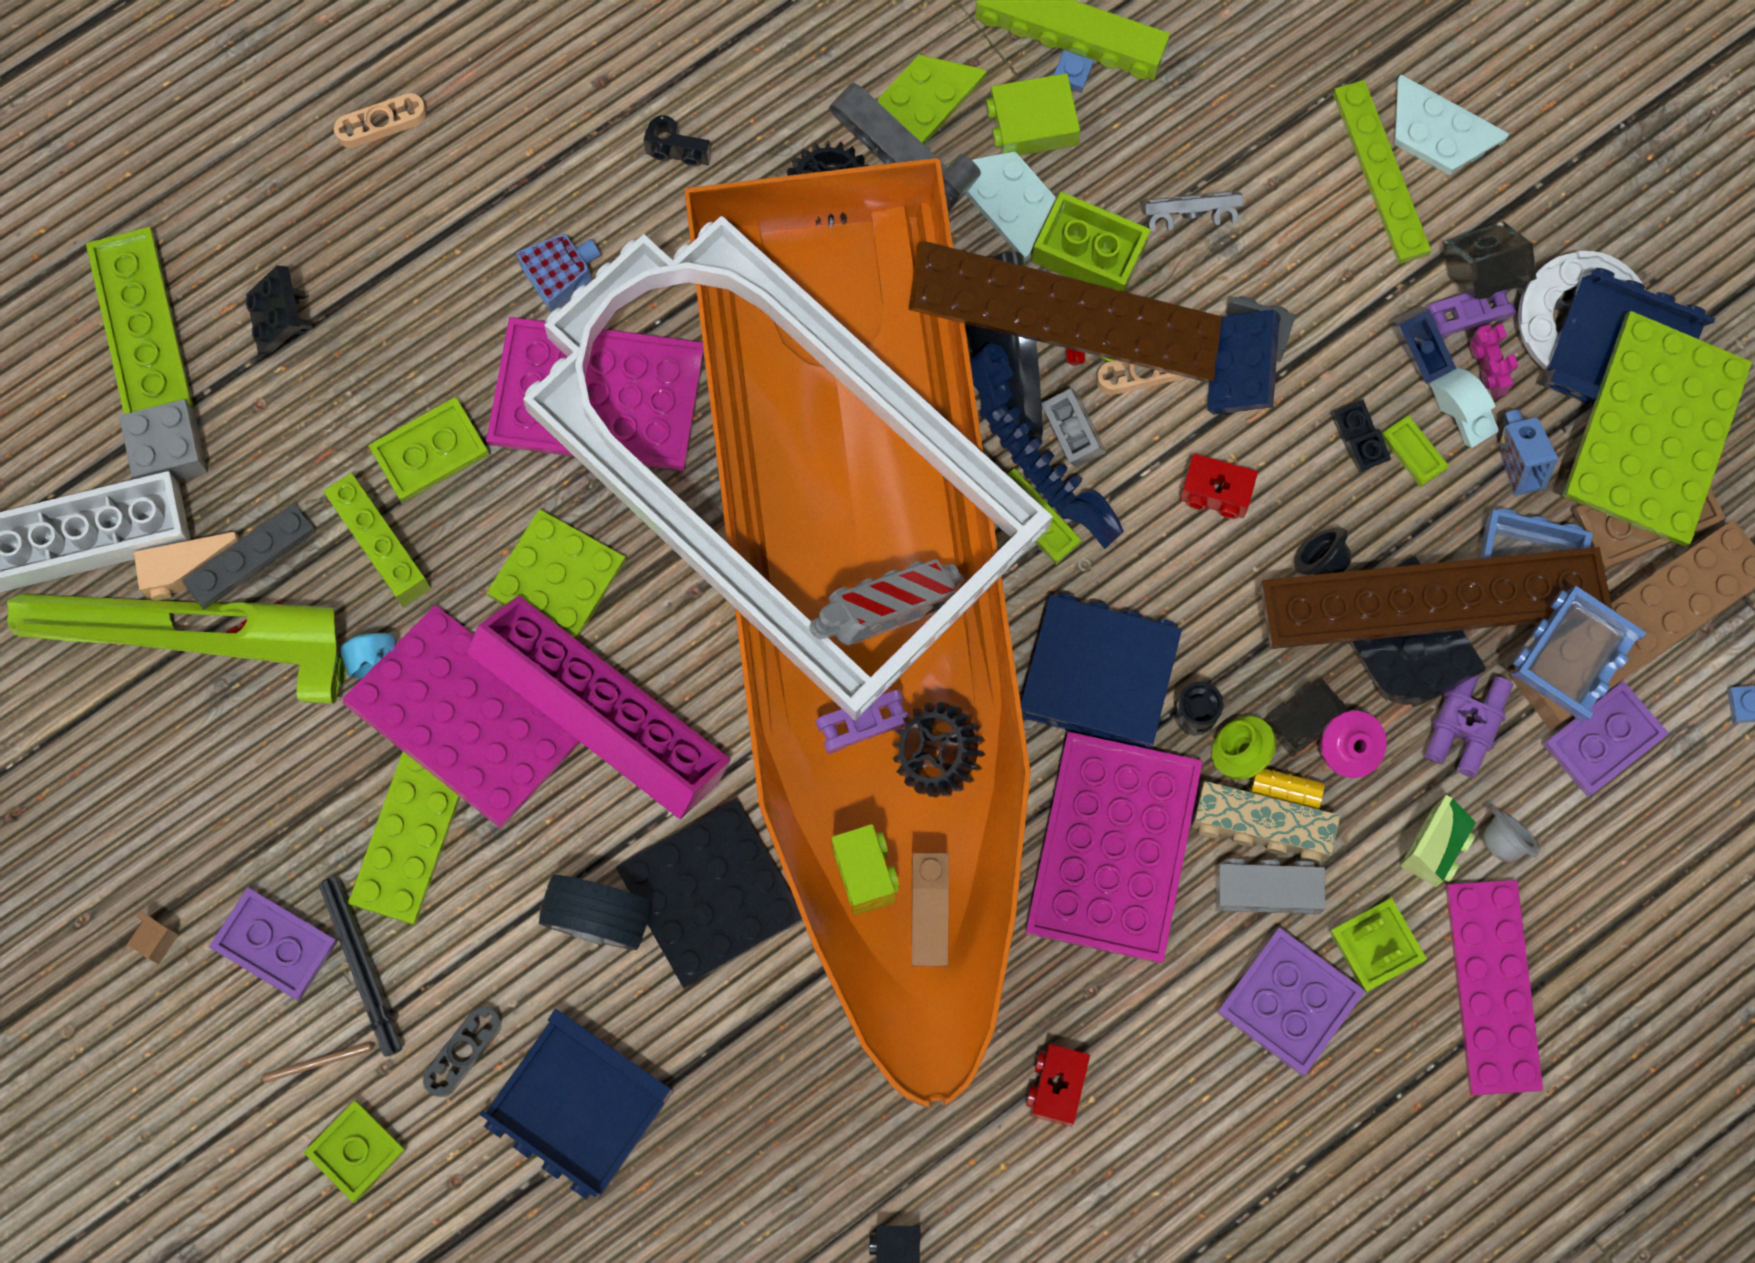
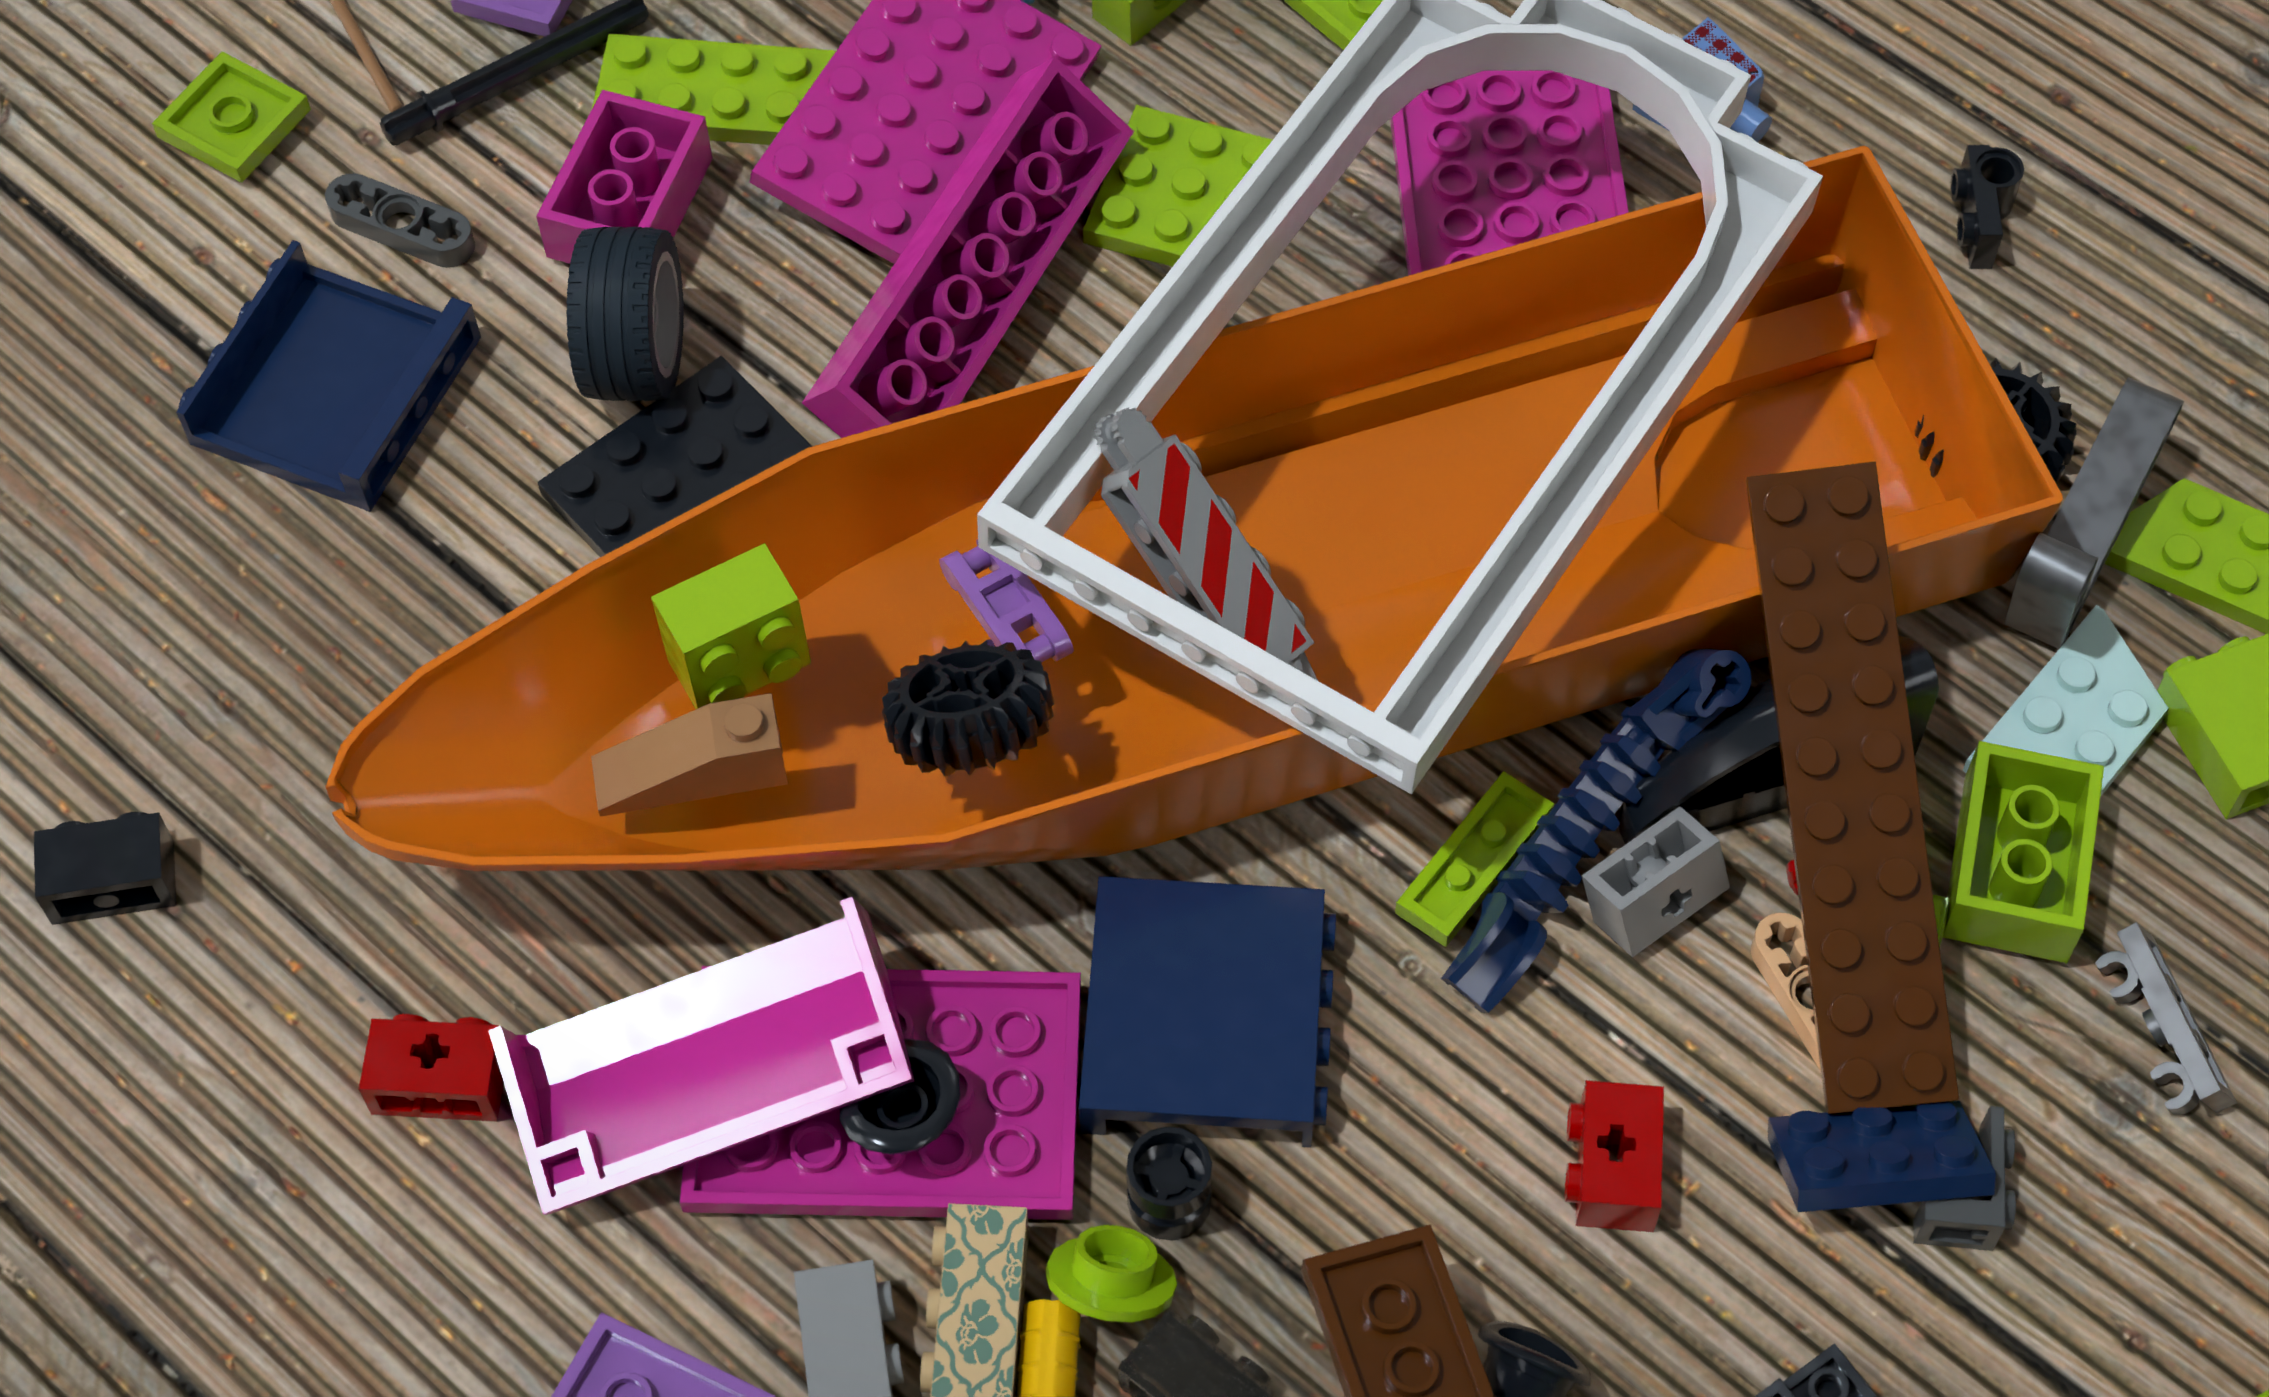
camera: 80 degrees right, 15 degrees down
(482, 904) = (625, 170): none -> dark pink brick
(1093, 933) = (704, 1062): none -> dark pink slope
(1140, 832) = (910, 1114): none -> black hat

